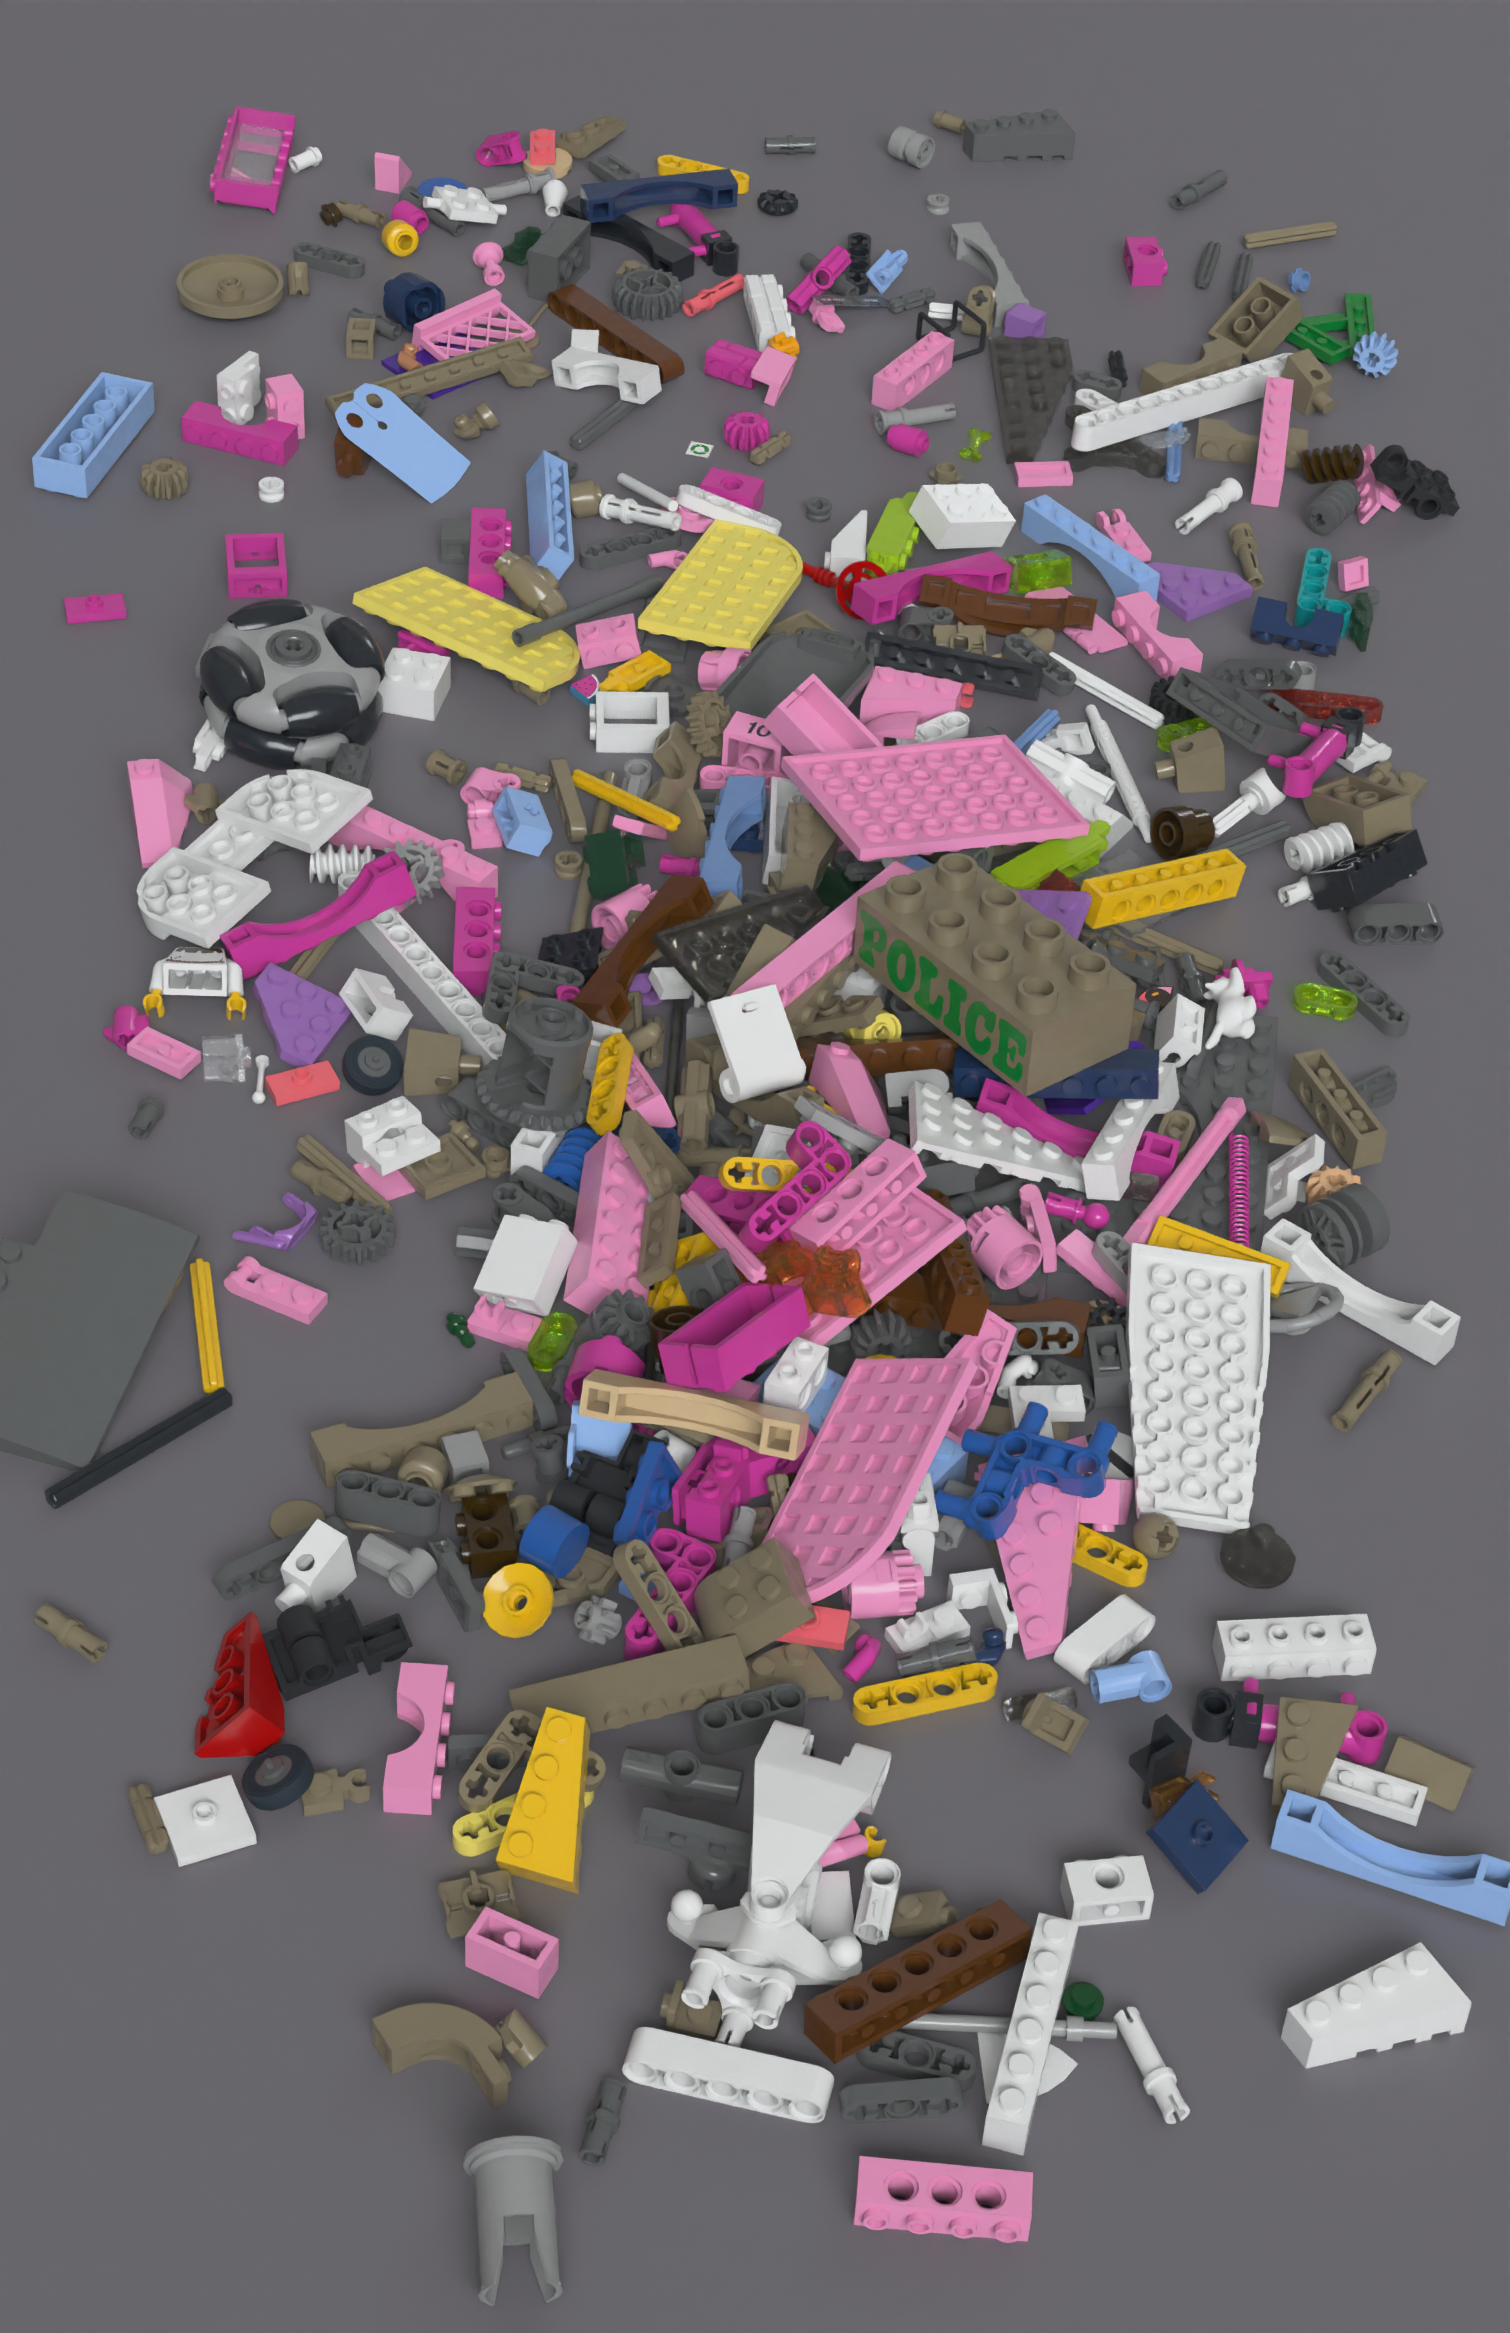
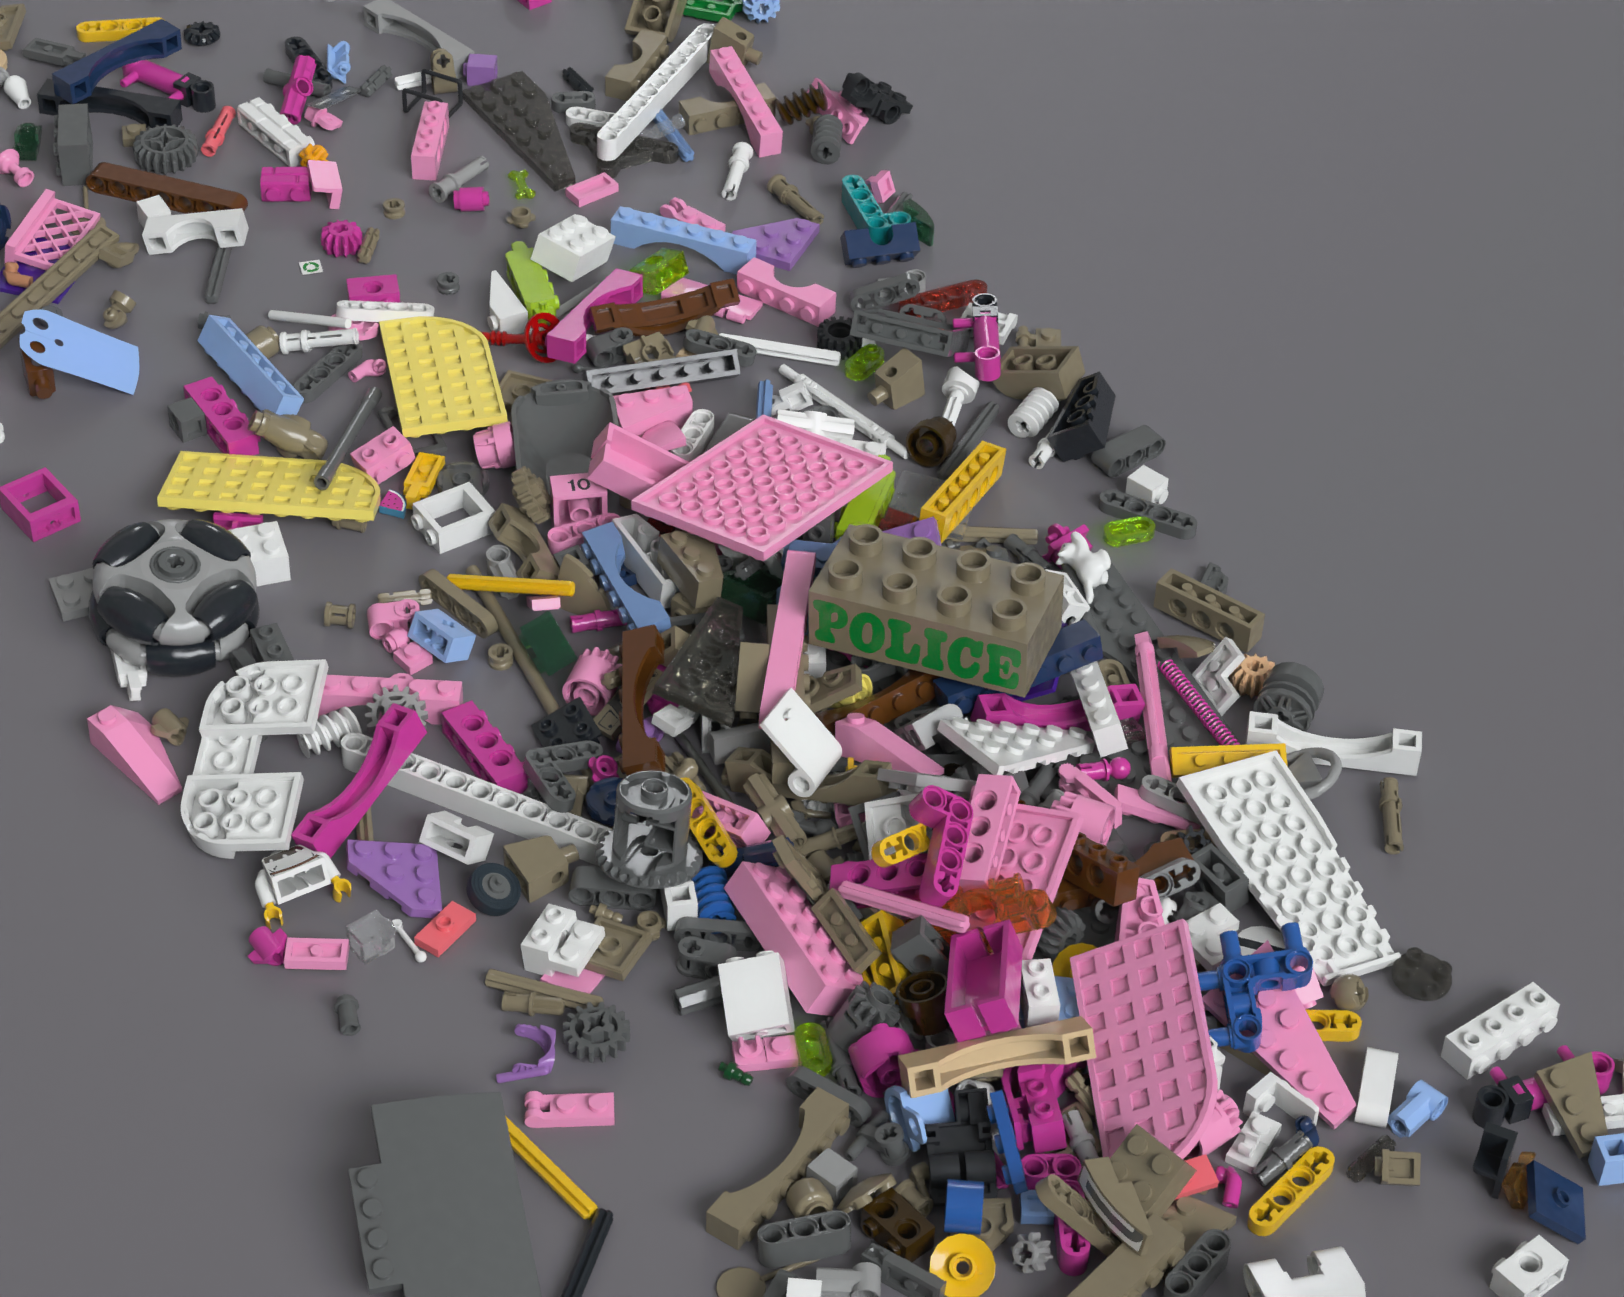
camera: 30 degrees left, 0 degrees up
(695, 1602) = (1116, 1204): none -> dark tan slope
(826, 423) = (394, 208): none -> dark tan bush
(1383, 964) = (1147, 485): none -> white brick

